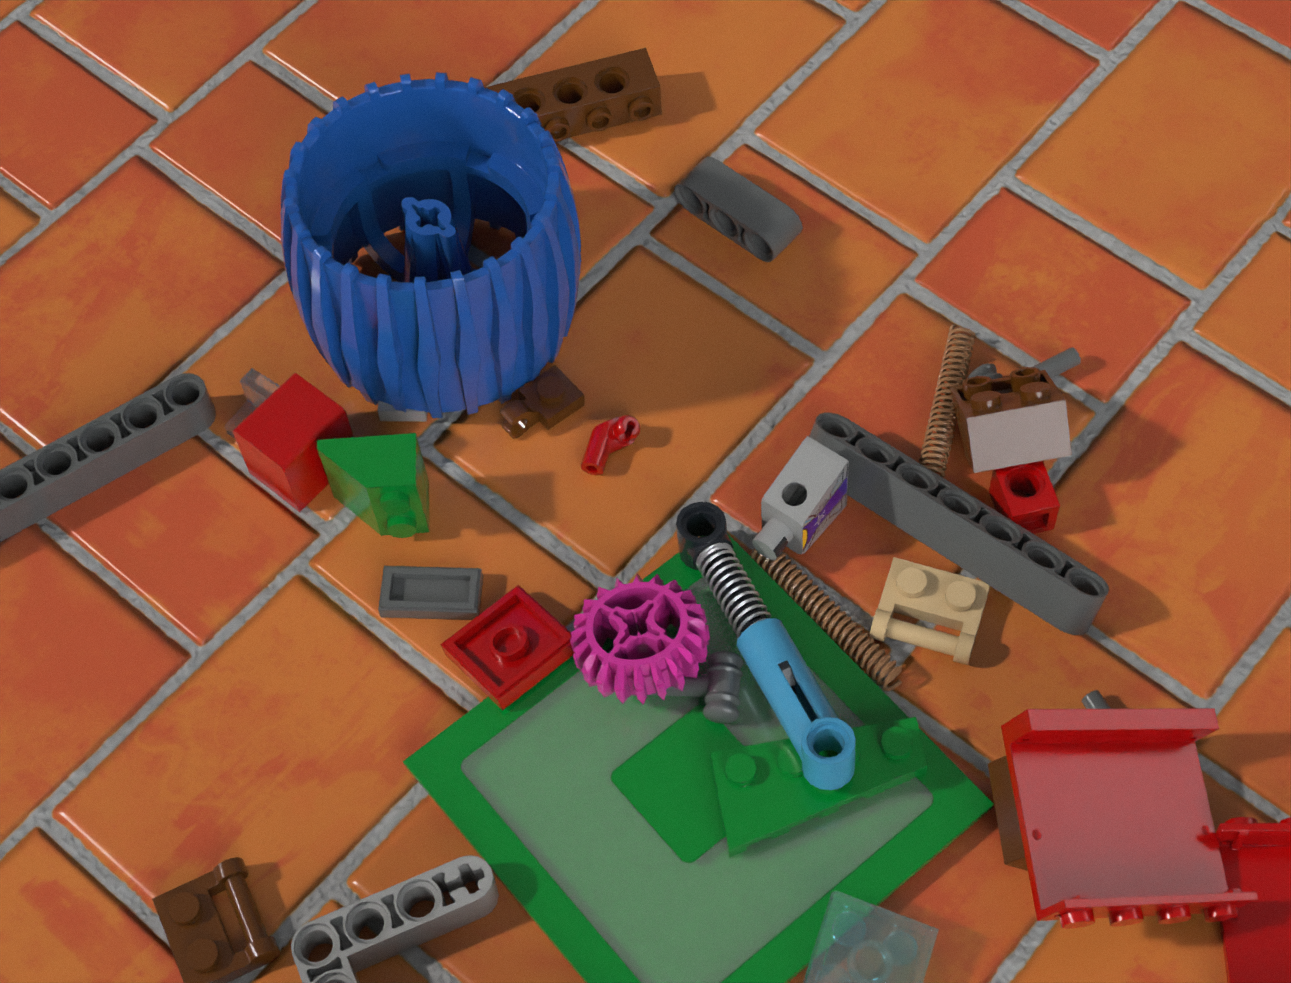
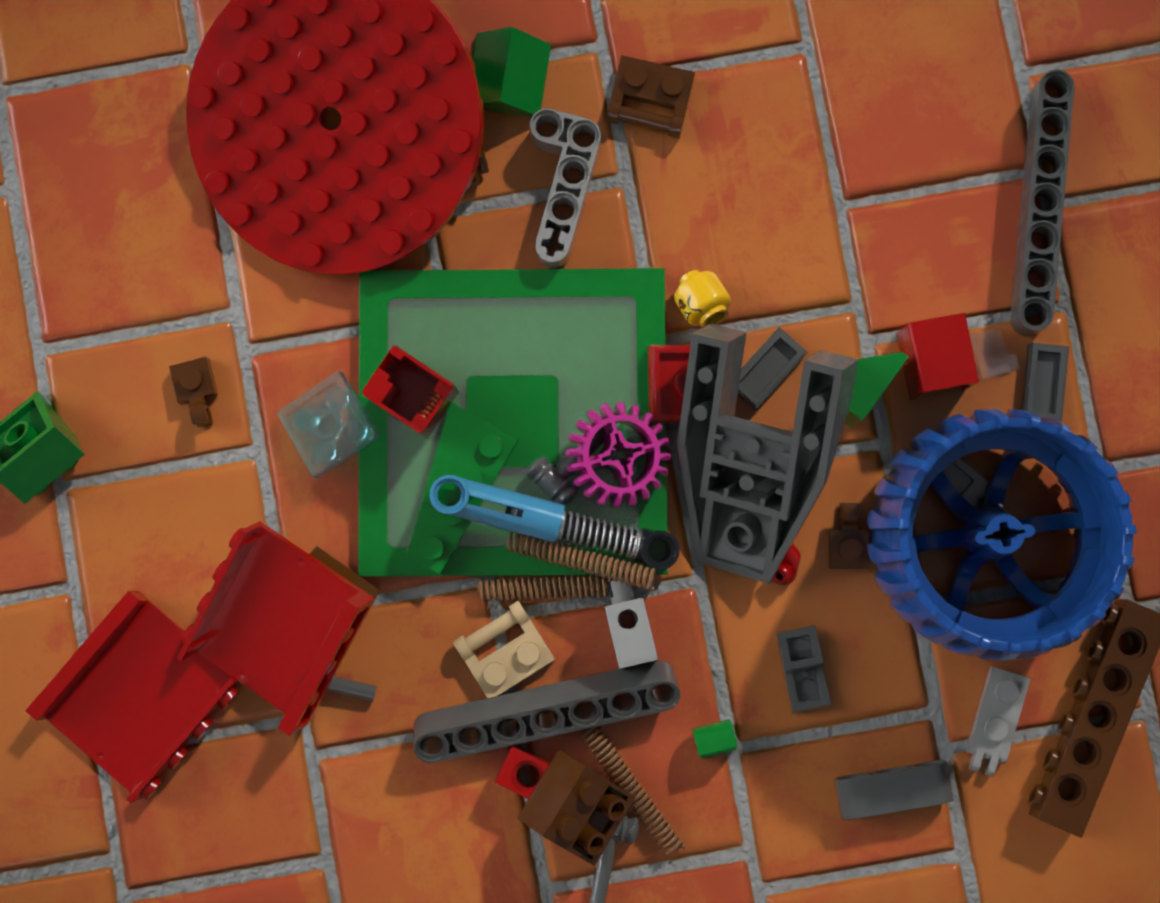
camera: 135 degrees right, 25 degrees up
(260, 348) = (1045, 380): none -> dark grey tile
(406, 697) = (702, 298): none -> yellow head
(564, 495) = (750, 480): none -> dark grey wedge
(614, 181) = (996, 719): none -> light grey hinge
(700, 353) = (803, 669): none -> dark grey slope
(757, 888) = (410, 391): none -> red piece
(773, 572) = (539, 545): none -> medium nougat piece
(833, 368) = (714, 739): none -> green brick

